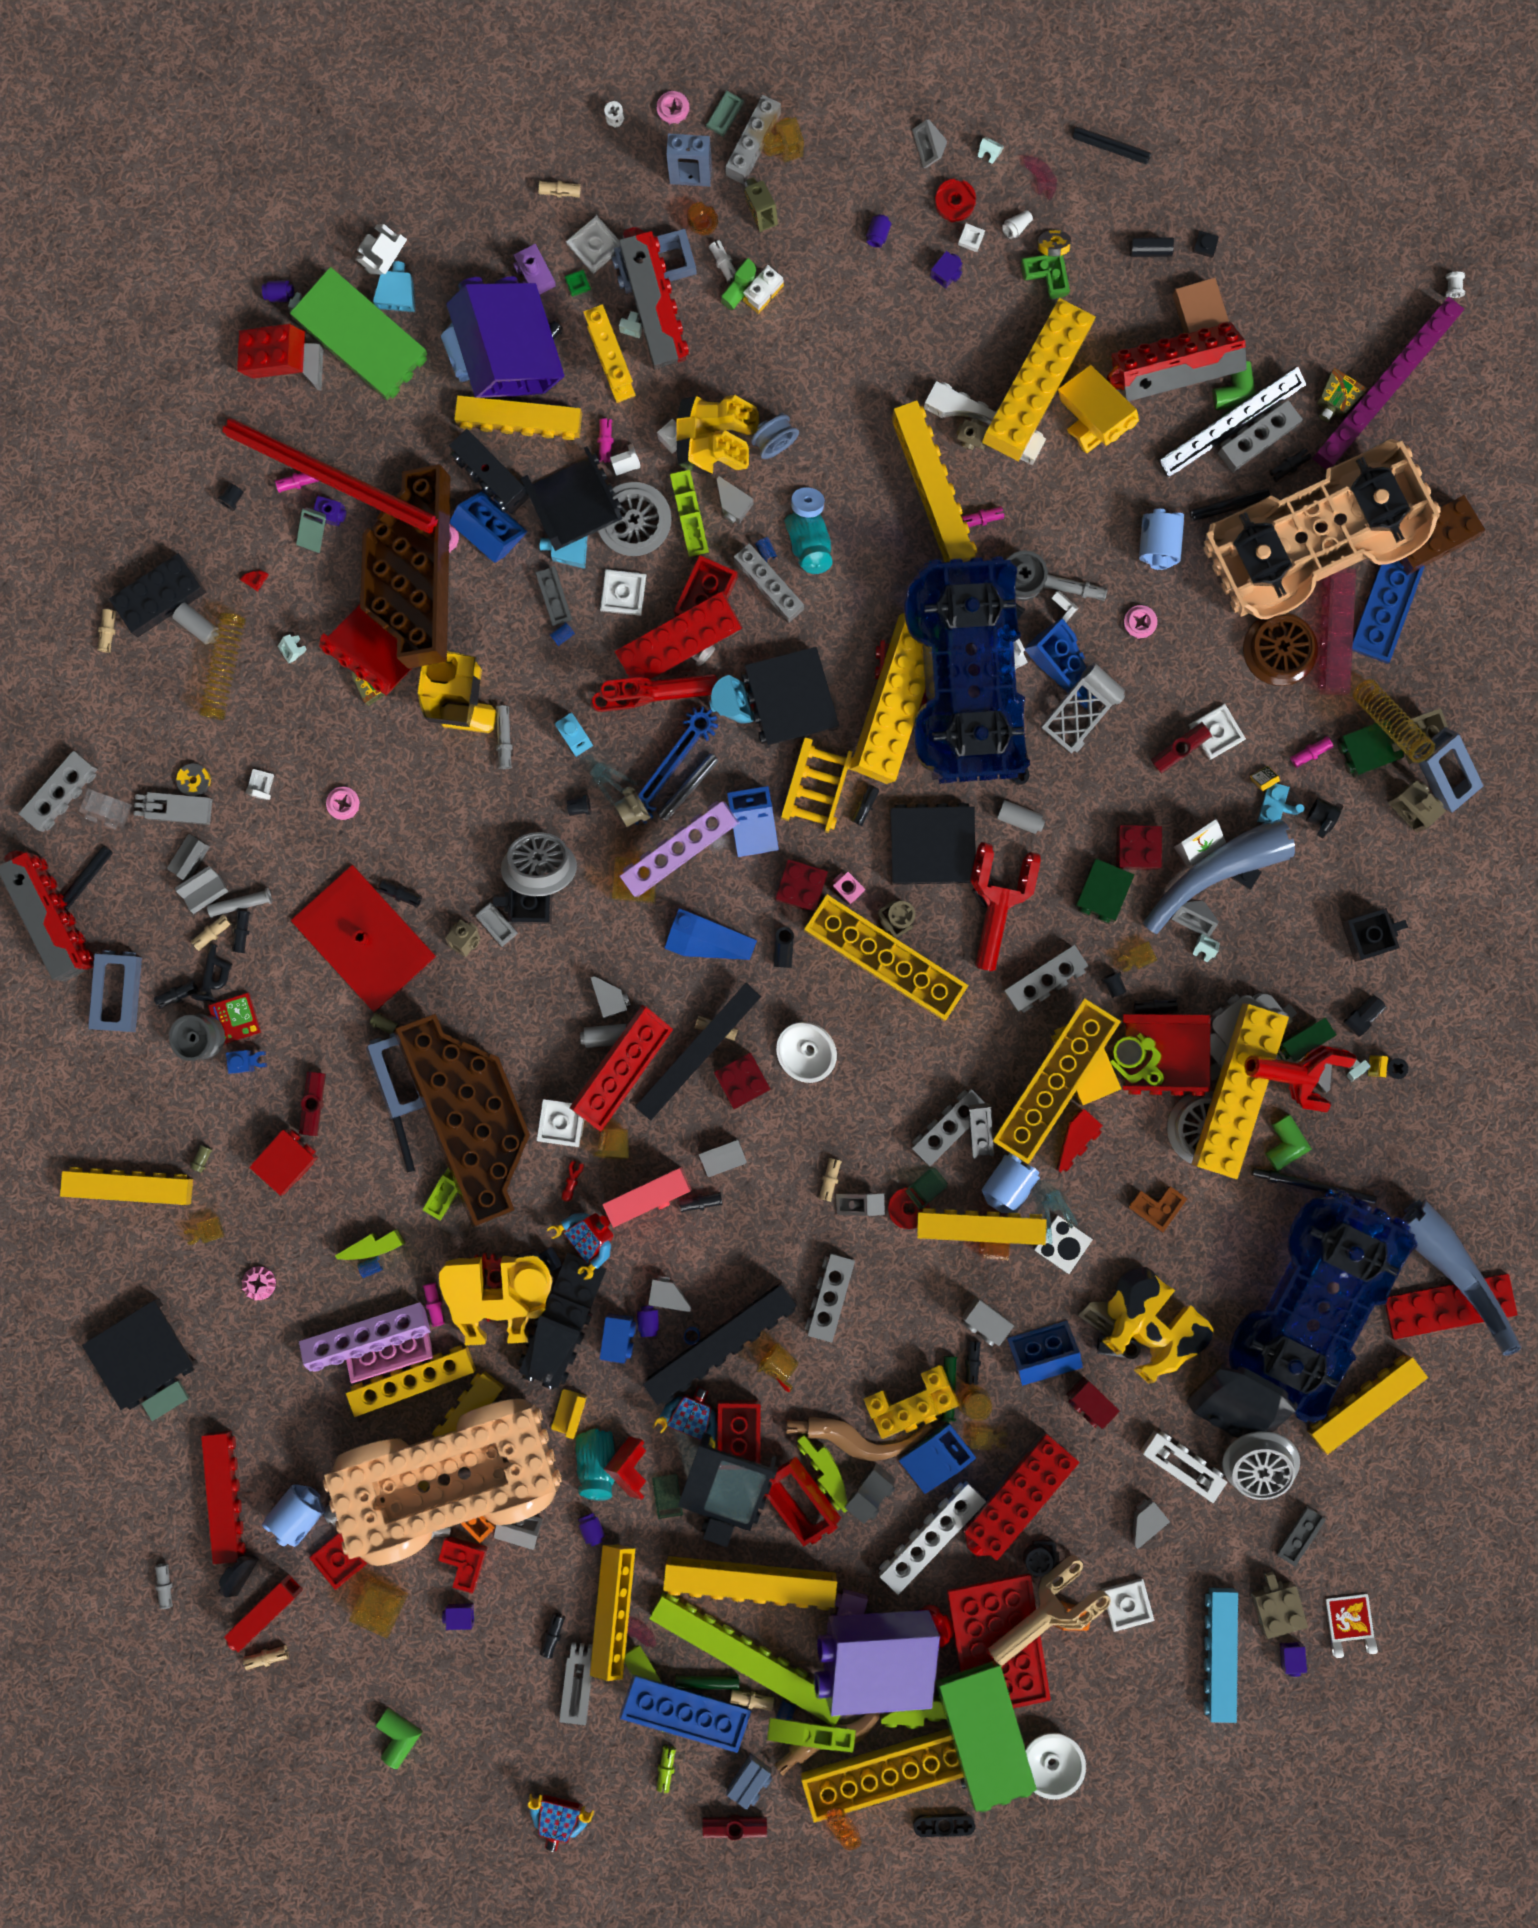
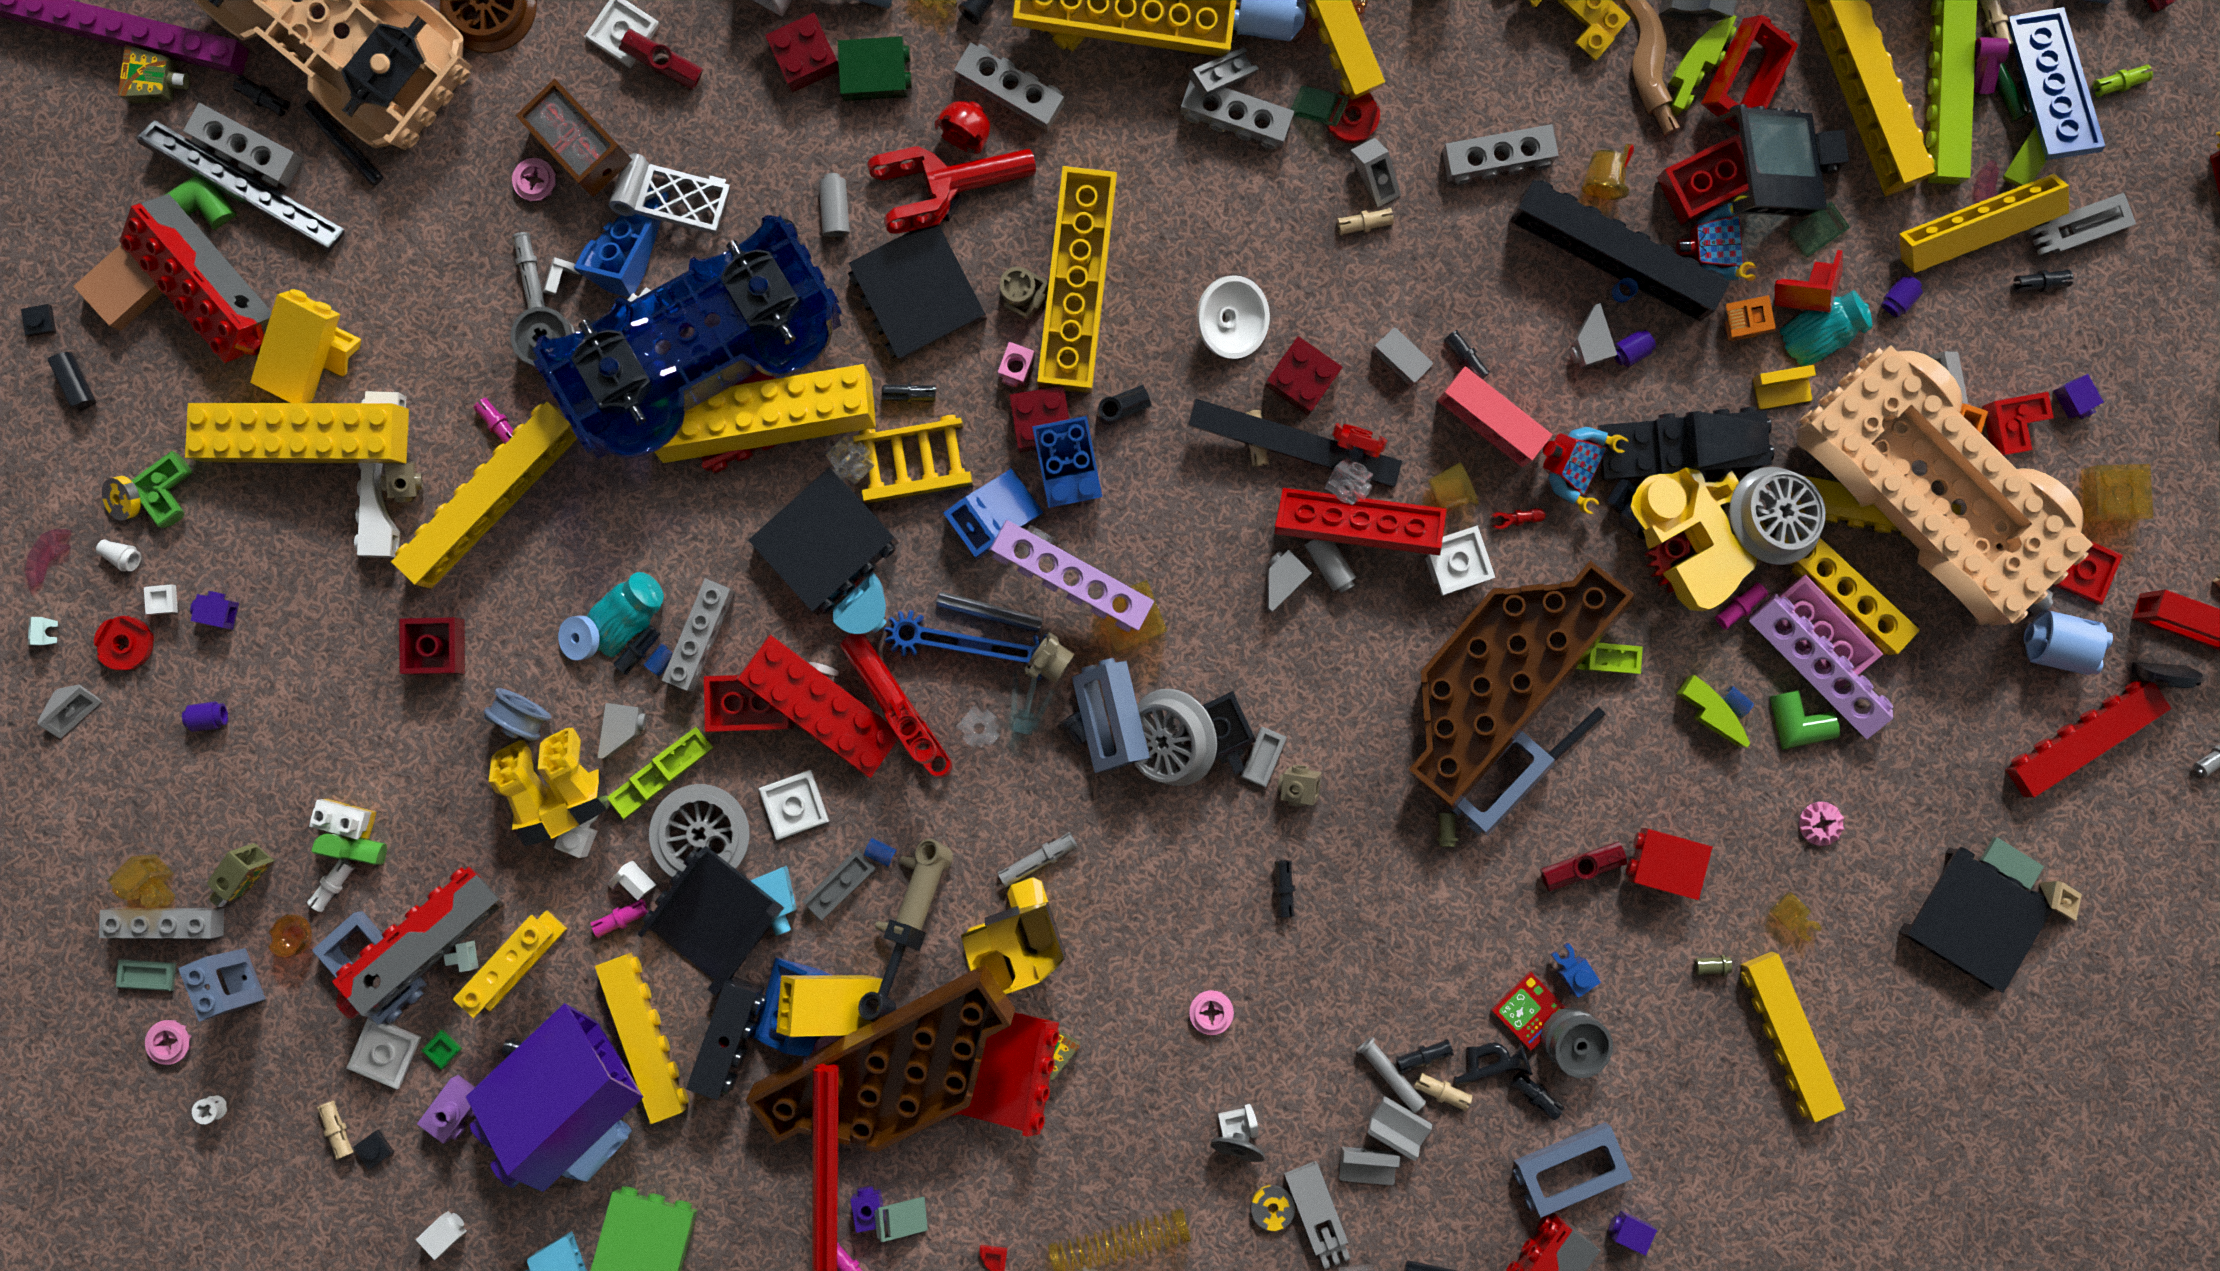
camera: 120 degrees left, 0 degrees up
(53, 1011) = (1632, 1232): none -> dark purple brick
(122, 1420) = (2062, 898): none -> tan slope
(245, 777) = (1239, 1147): none -> dark grey dish
(289, 648) = (1058, 1171): light aqua tile -> none
(330, 1300) = (1795, 728): none -> bright green brick
(387, 954) = (1354, 867): red piece -> none
(455, 226) = (442, 1234): none -> white brick
(475, 549) = (822, 1004): none -> yellow brick
(499, 1337) = (1780, 513): none -> light grey piece
(500, 626) = (909, 921): none -> piece
(534, 208) = (373, 1149): none -> black plate
(573, 734) = (992, 778): medium azure torso -> none
(574, 831) = (1121, 711): none -> sand blue piece
(614, 748) = (969, 723): none -> clear brick
(616, 1338) = (1673, 372): blue brick -> none
(628, 1412) = (1749, 318): none -> orange piece
(652, 1074) = (1350, 481): none -> clear brick
(679, 1096) = (1351, 436): none -> red plate
(703, 938) = (1158, 502): blue wedge -> none
(727, 1677) = (1988, 58): none -> magenta piece
(760, 887) = (1067, 461): none -> blue slope
(780, 537) = (636, 650): none -> black axle
(836, 741) = (850, 459): none -> clear brick
(849, 402) = (431, 646): none -> dark red brick
(1032, 934) = (964, 125): none -> red cylinder
(1152, 660) = (573, 137): none -> brick
(1161, 539) = (422, 198): light blue cylinder -> none

